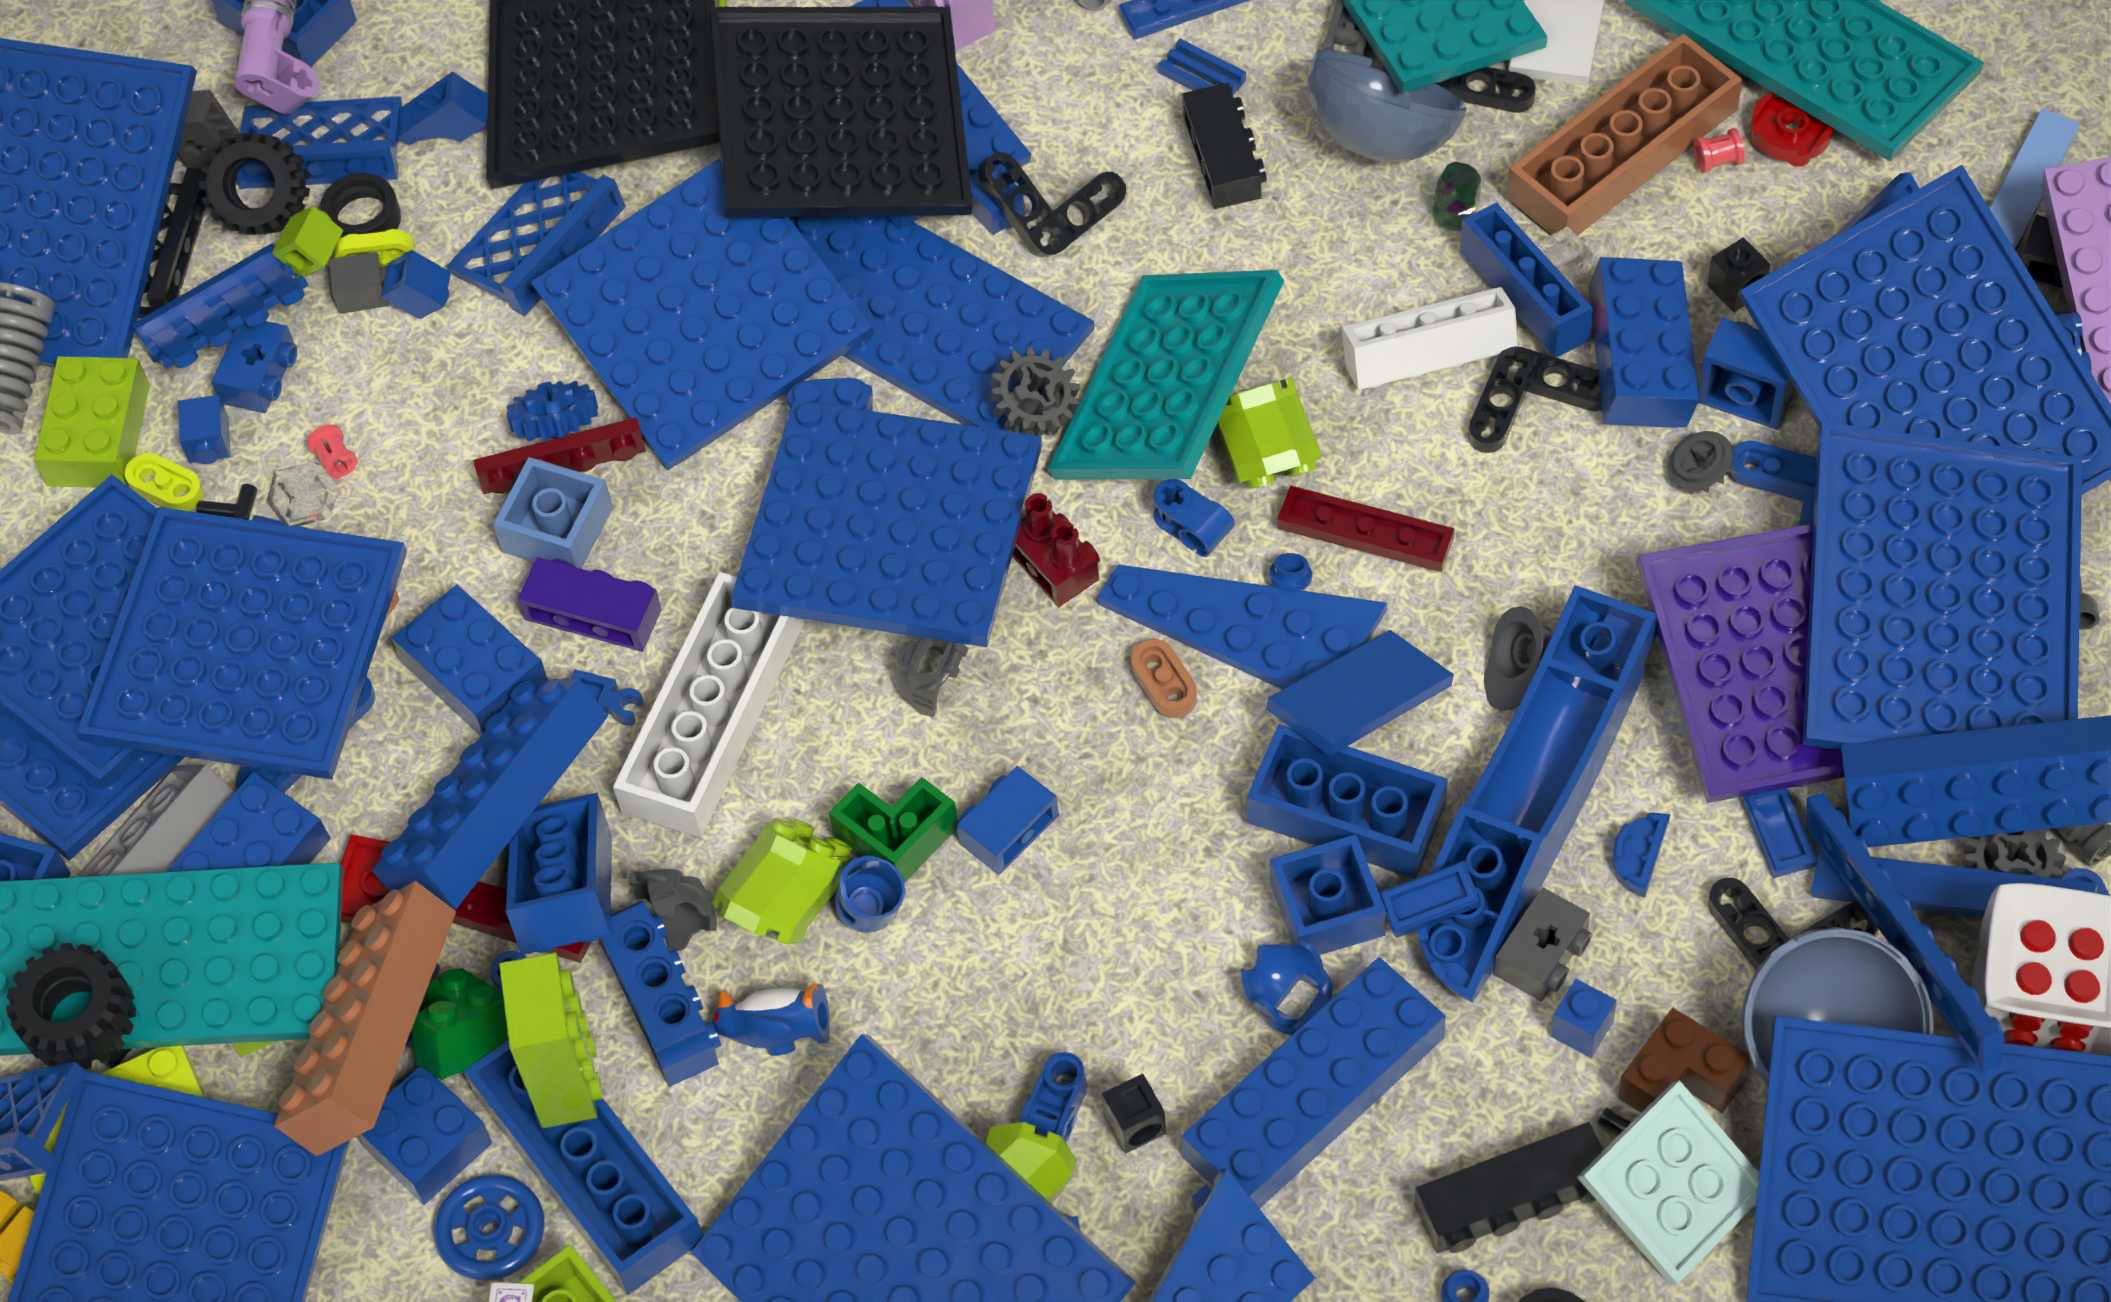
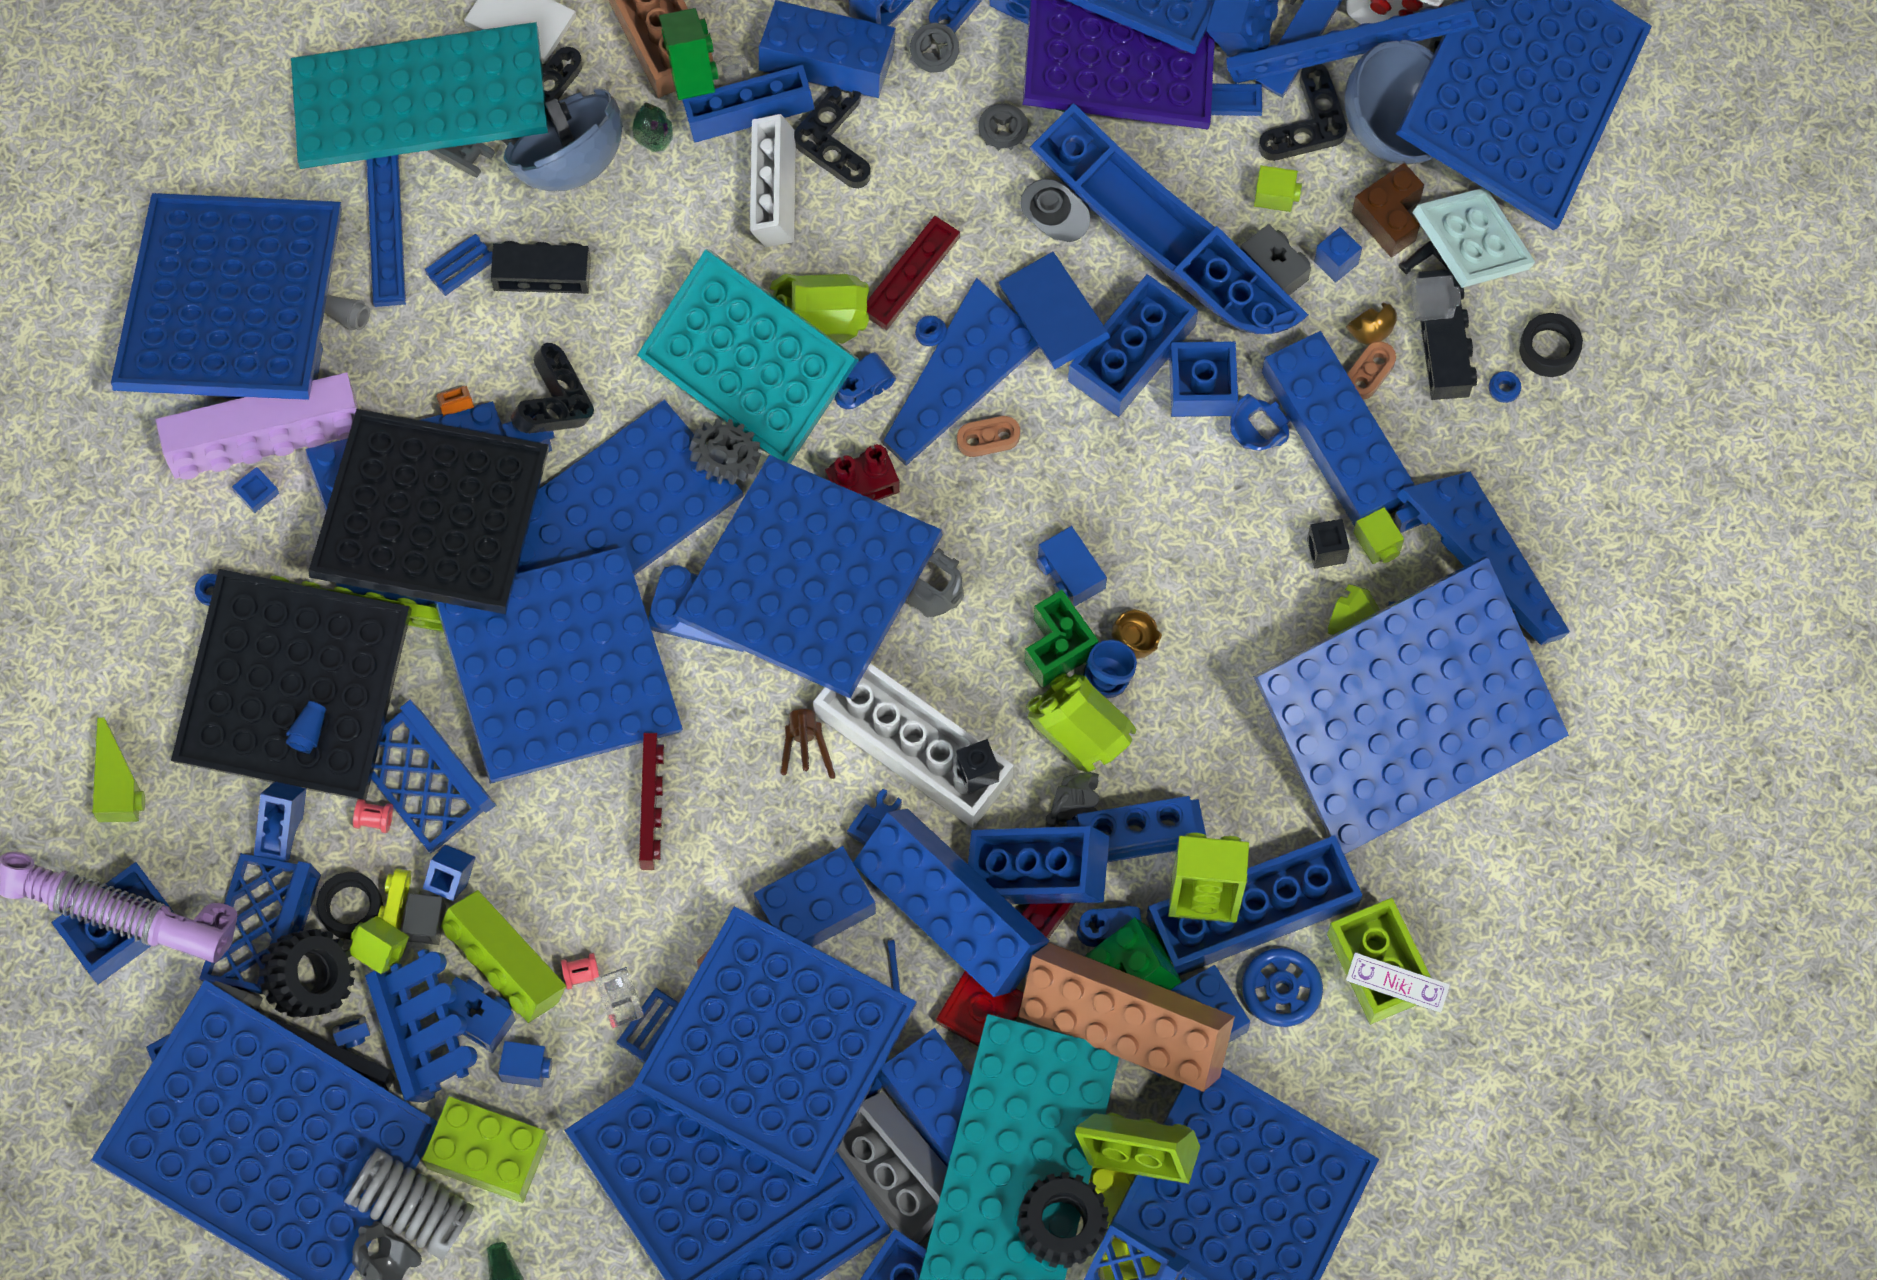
camera: 80 degrees left, 10 degrees up
(167, 484) = (559, 1105): neon yellow plate -> none
(187, 1066) = (1139, 1146): none -> lime slope
(206, 255) = (351, 1032): none -> blue plate
(240, 510) = (606, 1056): black piece -> none
(326, 367) = (502, 956): none -> lime brick
(440, 766) = (893, 963): none -> blue hinge
(473, 199) = (373, 815): none -> coral bush
(546, 91) = (307, 728): none -> blue cone
(552, 410) = (609, 796): blue gear -> none
(553, 514) = (708, 814): medium blue brick -> none
(590, 603) = (790, 808): dark purple brick -> none
(668, 761) = (977, 766): none -> black brick
(696, 586) = (803, 729): none -> reddish brown plant
(774, 1018) = (1183, 756): blue animal -> none
(933, 917) = (1137, 631): none -> pearl gold hair
(1017, 116) = (455, 400): none -> orange tile
(1053, 1105) = (1300, 594): blue piece -> none
(1171, 1180) = (1379, 536): none -> lime brick
(1423, 87) = (559, 116): none -> black plate
(1427, 1105) = (1369, 372): none -> nougat plate
(1430, 899) = (1233, 312): blue tile -> none
(1491, 1091) = (1373, 325): none -> pearl gold hair
(1544, 173) = (688, 49): none -> green brick
(1544, 1142) = (1434, 298): none -> clear brick
(1611, 560) = (1003, 114): none -> dark grey gear
(1638, 849) = (1221, 185): blue plate -> none
(1657, 917) = (1277, 188): none -> lime brick

